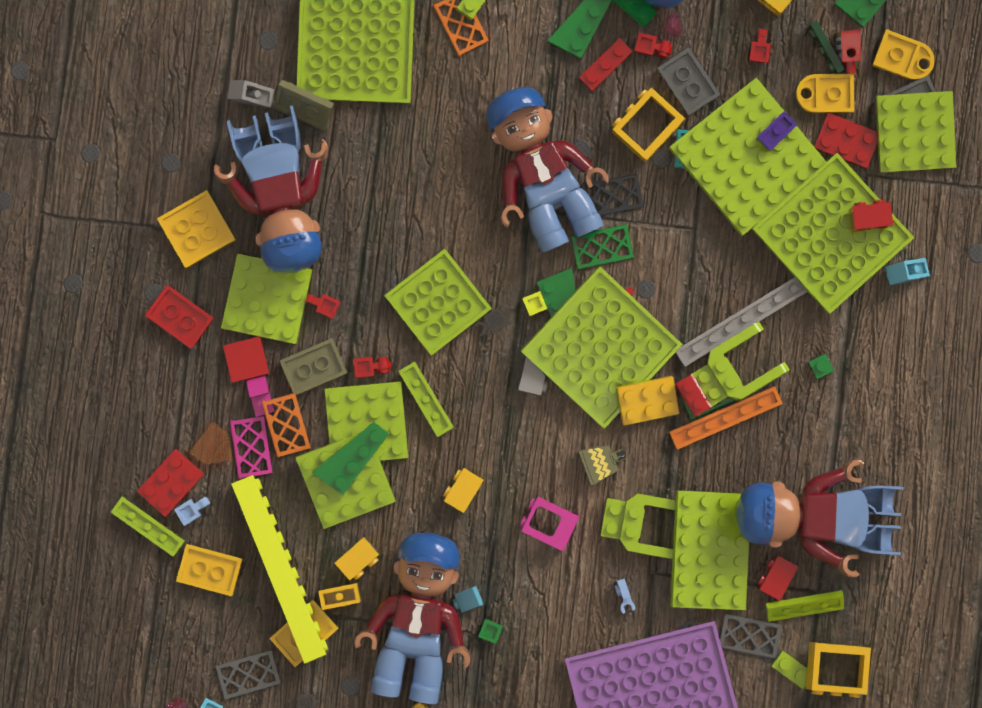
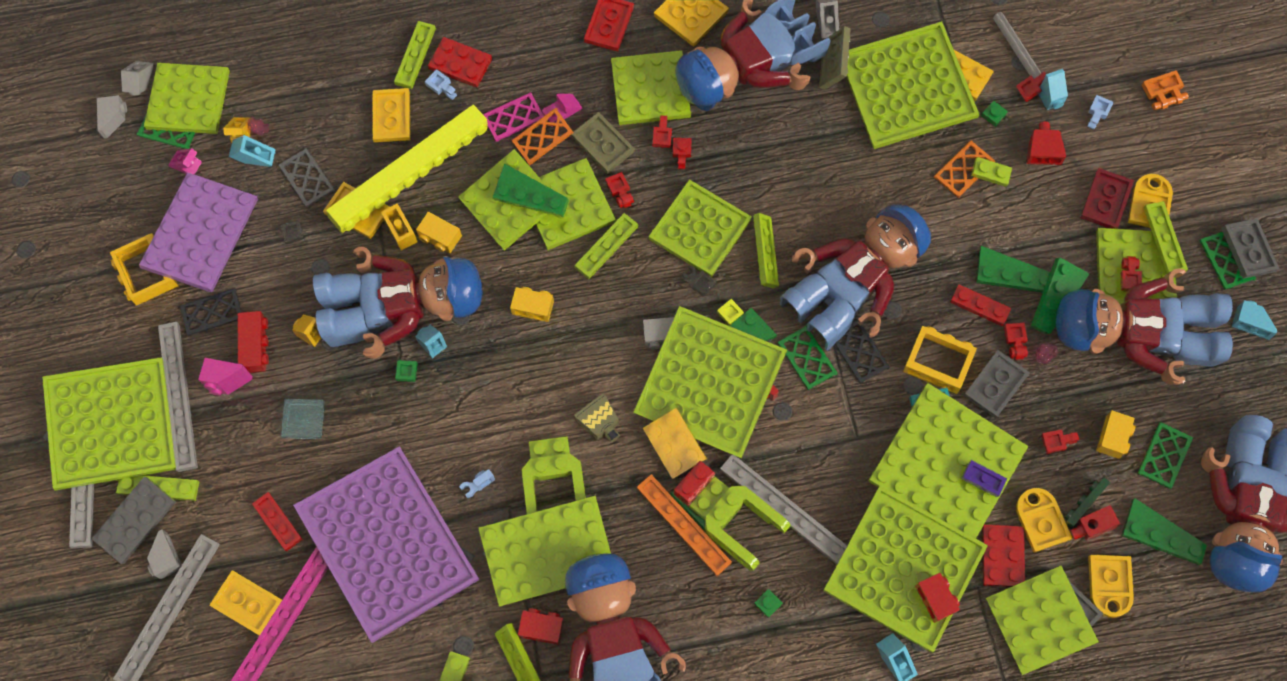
camera: 75 degrees right, 15 degrees down
(212, 445) = (504, 84): clear orange slope -> none
(246, 359) = (590, 87): red tile -> none
(347, 290) = (682, 150): none -> red plate
(483, 247) = (766, 250): none -> lime plate
(563, 531) = (520, 405): dark pink window -> none
(757, 651) = (489, 629): dark grey window -> none

